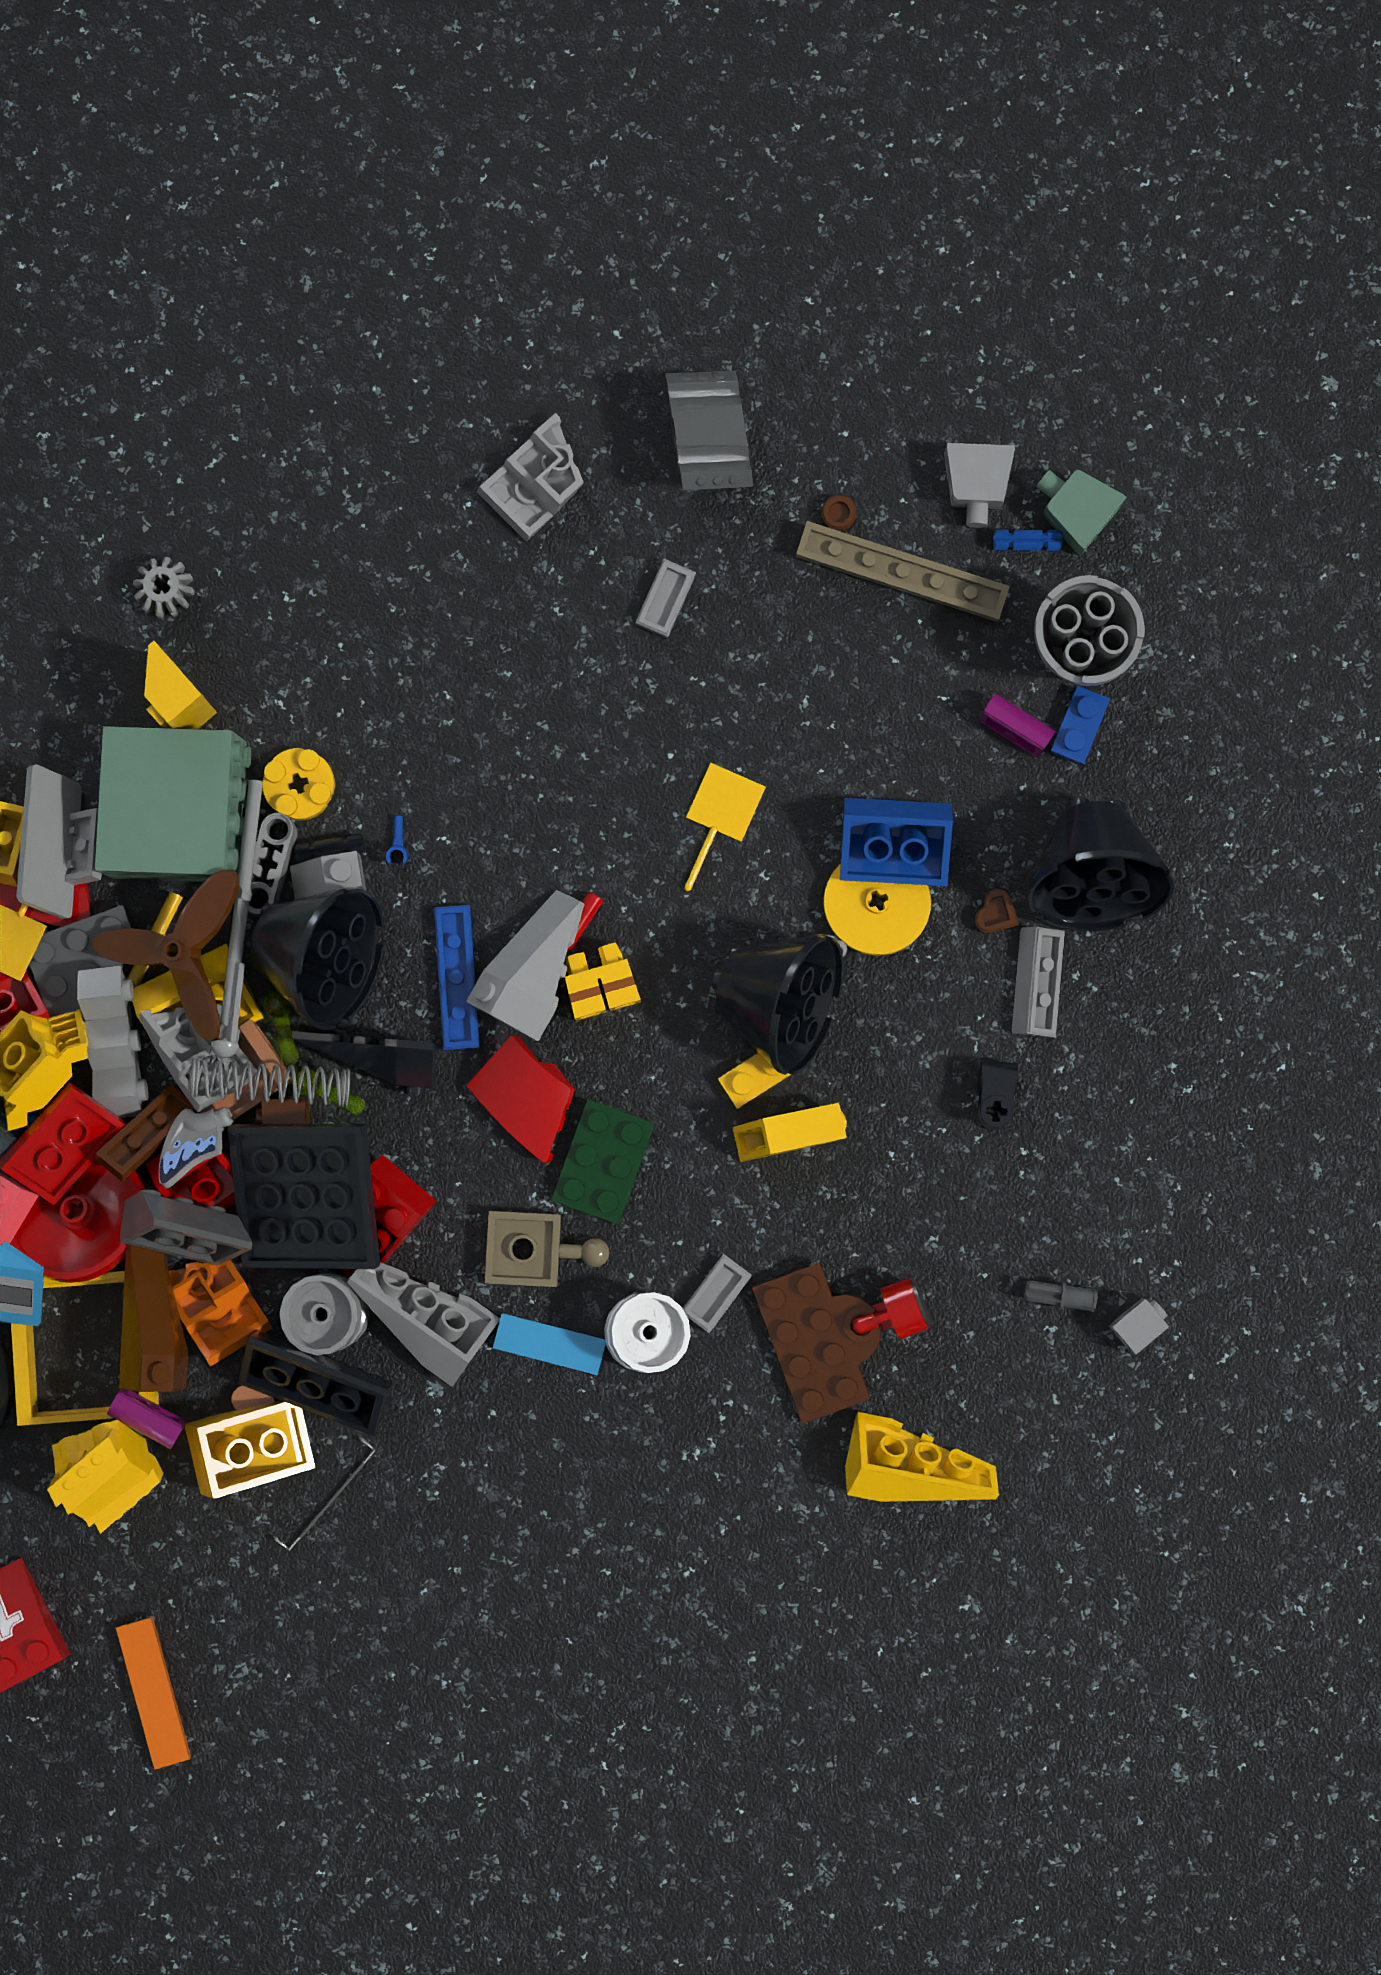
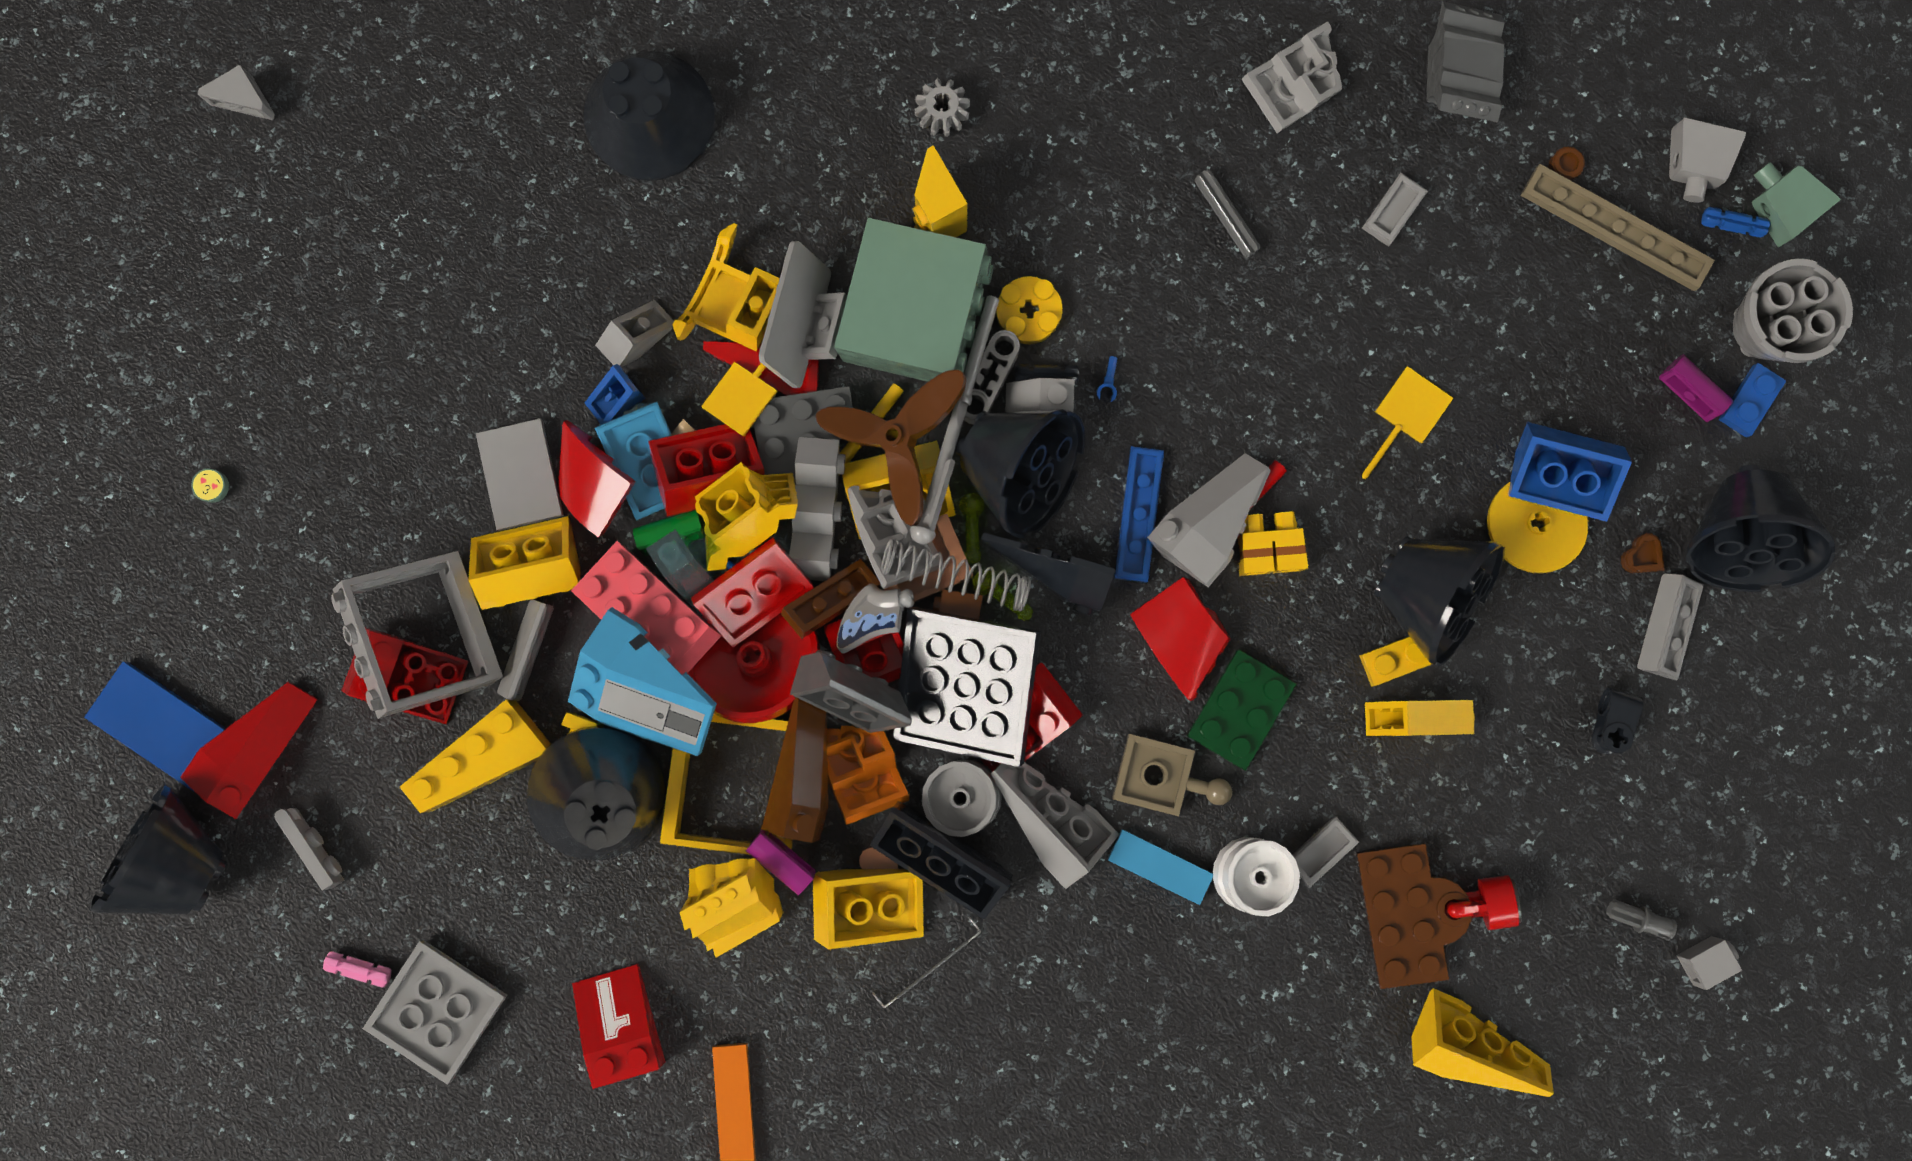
camera: 10 degrees right, 0 degrees up
(488, 639) = (1227, 213): none -> dark grey axle

